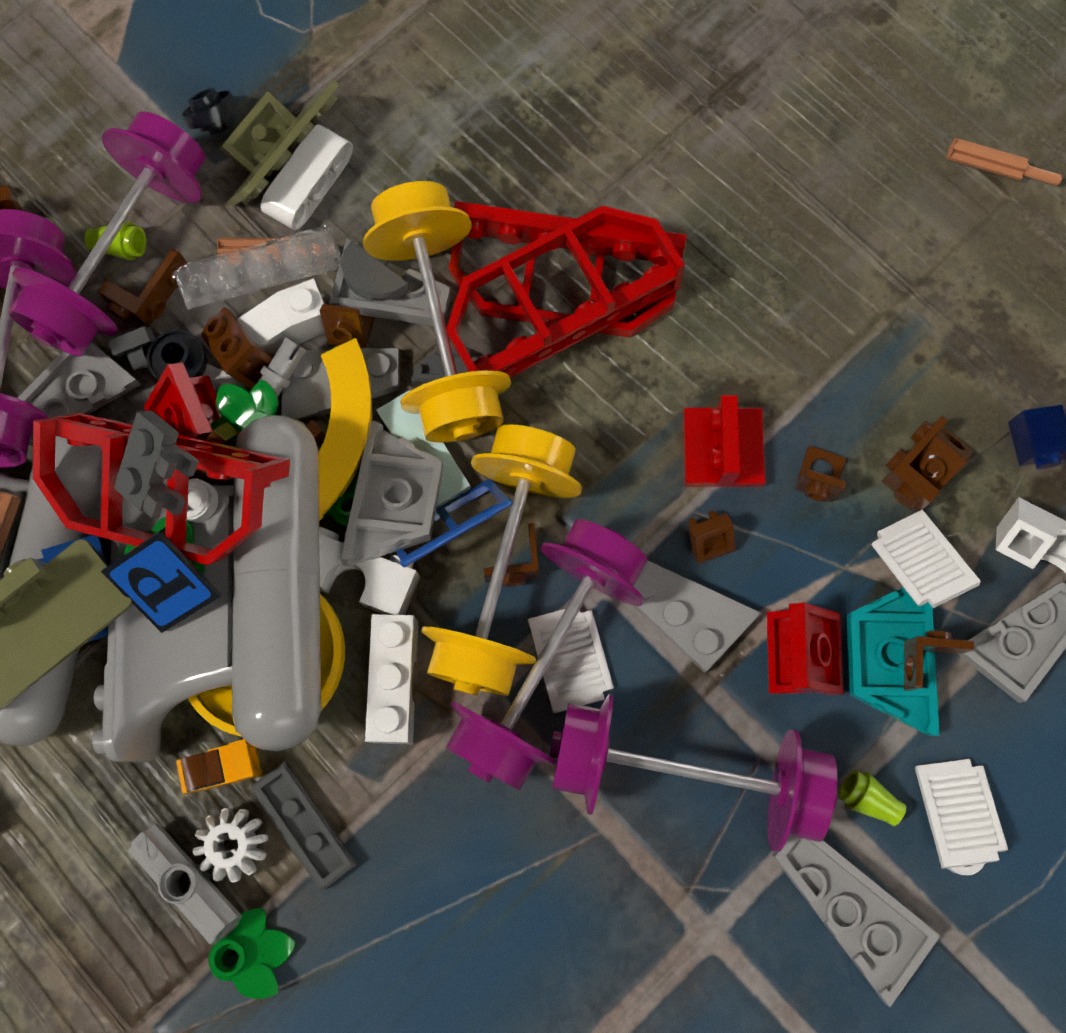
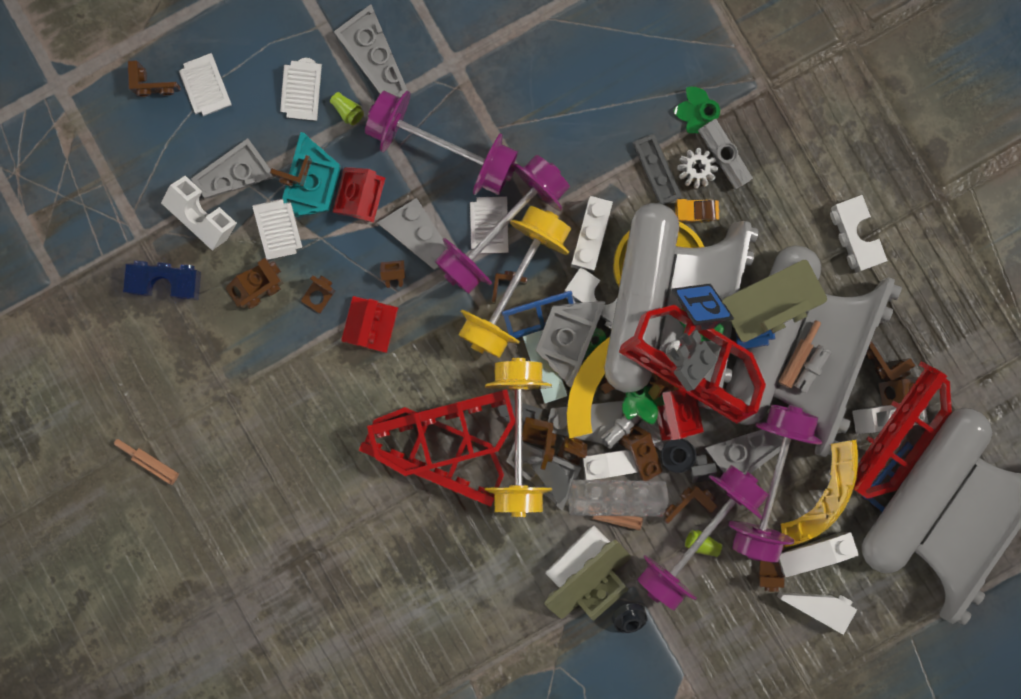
camera: 170 degrees left, 10 degrees up
(401, 341) = (540, 433): none -> reddish brown bracket

